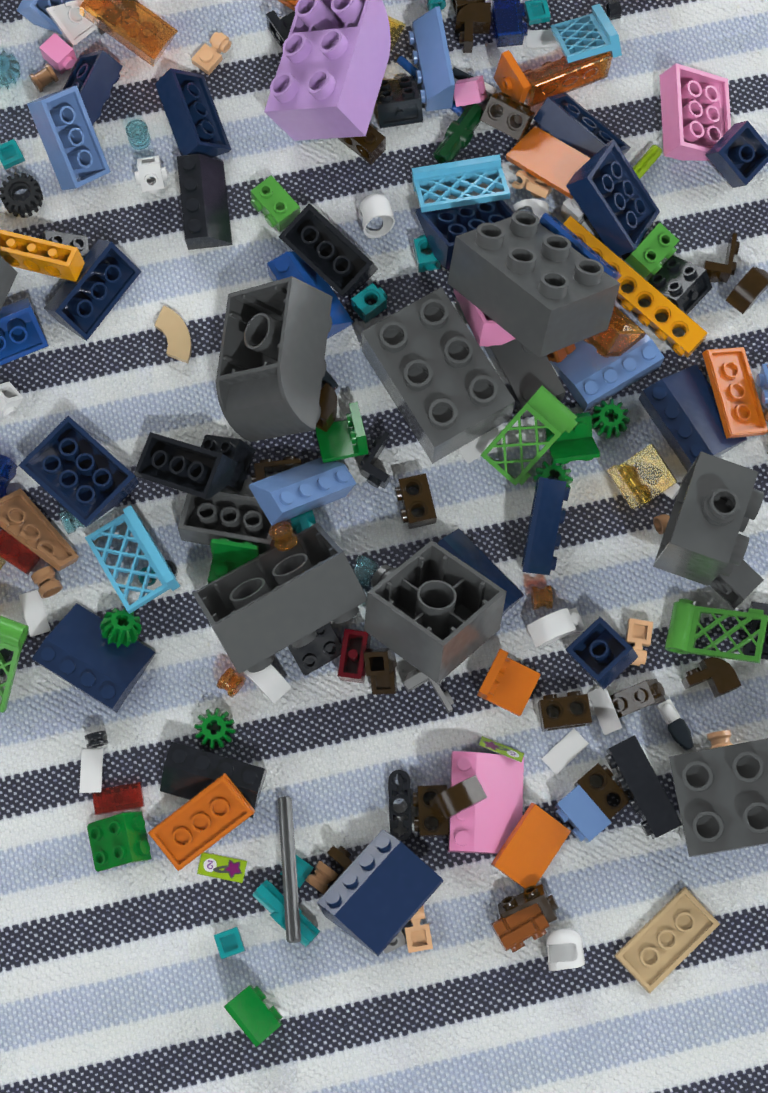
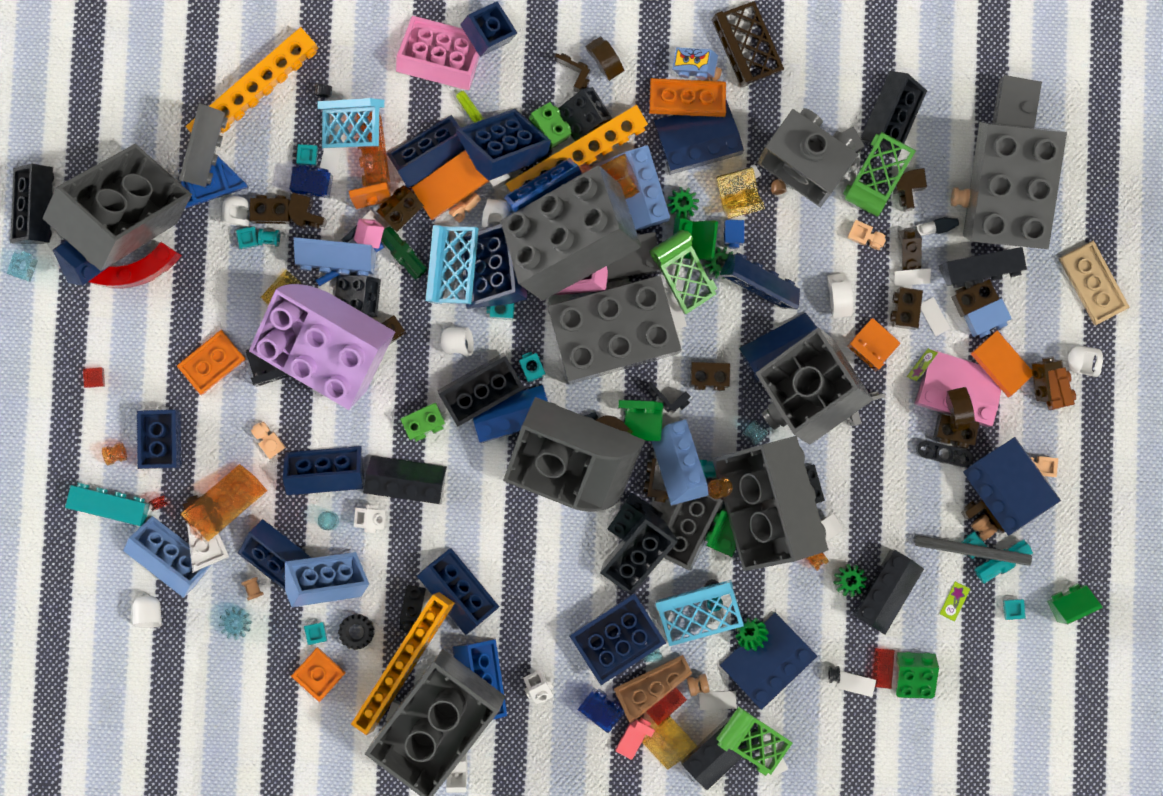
camera: 75 degrees left, 10 degrees up
(58, 53) = (234, 570): bright pink brick -> none
(176, 333) = (514, 532): tan tile -> none
(201, 822) = (921, 607): orange tile -> none
(352, 656) = (824, 458): dark red brick -> none
(380, 666) = (840, 440): dark brown brick -> none
(541, 597) = (813, 299): clear orange wheel -> none
(592, 485) = (733, 233): none -> blue brick
(602, 653) = (872, 266): dark blue brick -> none

